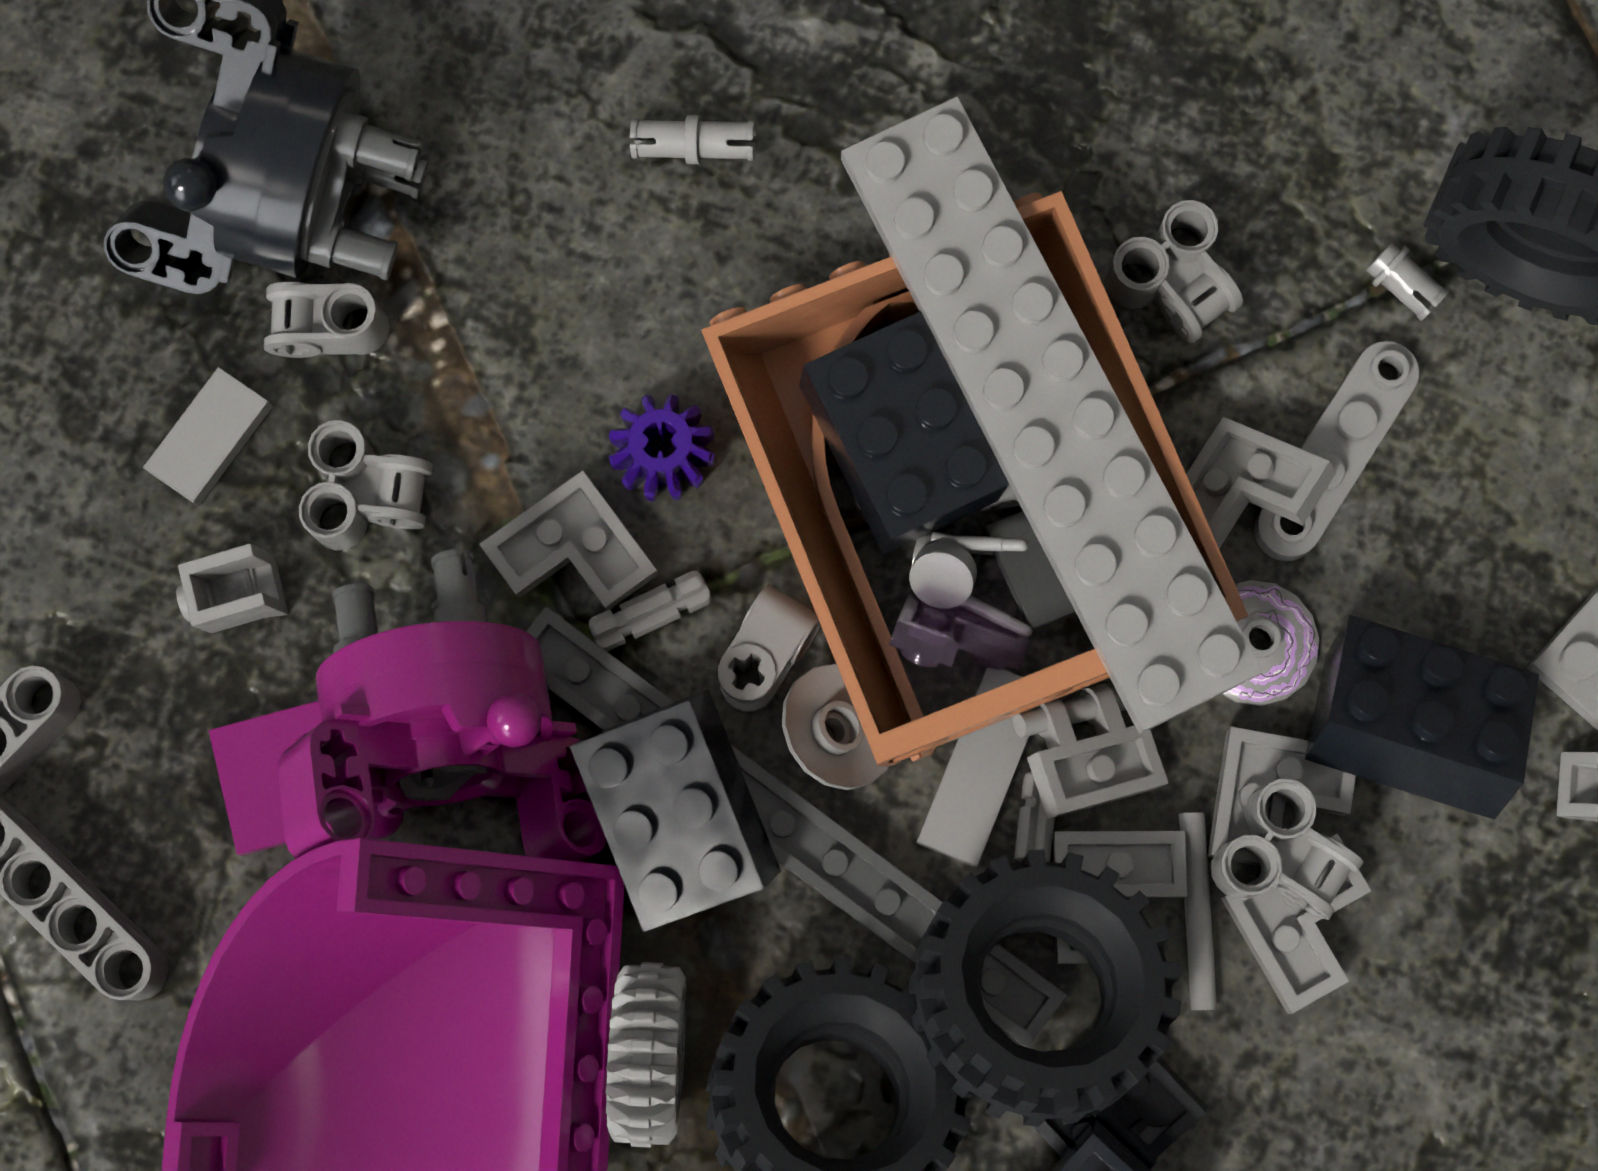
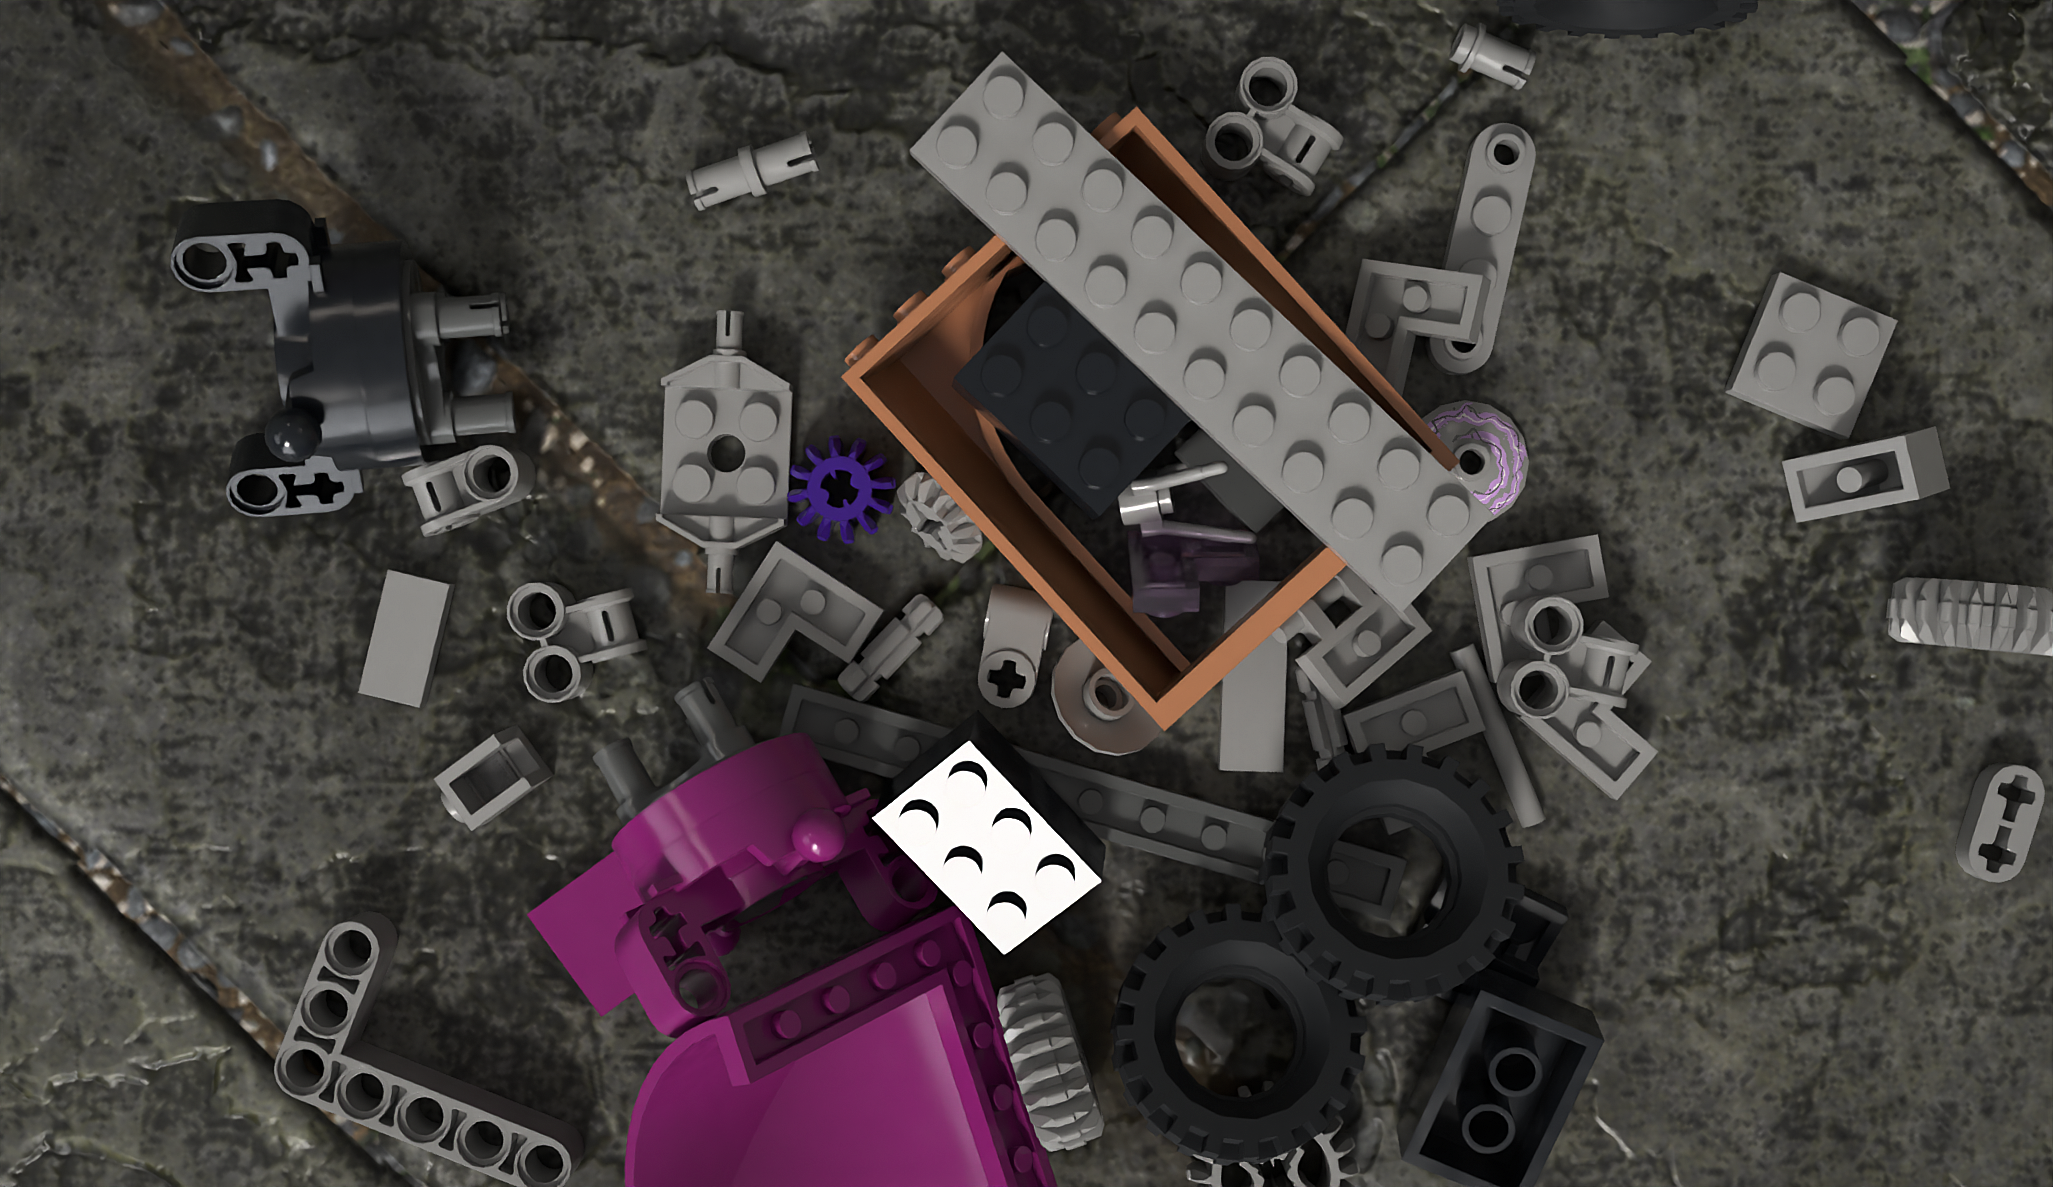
camera: 25 degrees left, 10 degrees up
(569, 326) = (715, 400): none -> light grey plate
(742, 503) = (938, 518): none -> light grey gear
(943, 575) = (1155, 518): light grey tile -> none
(1423, 717) = (1649, 484): black brick -> none

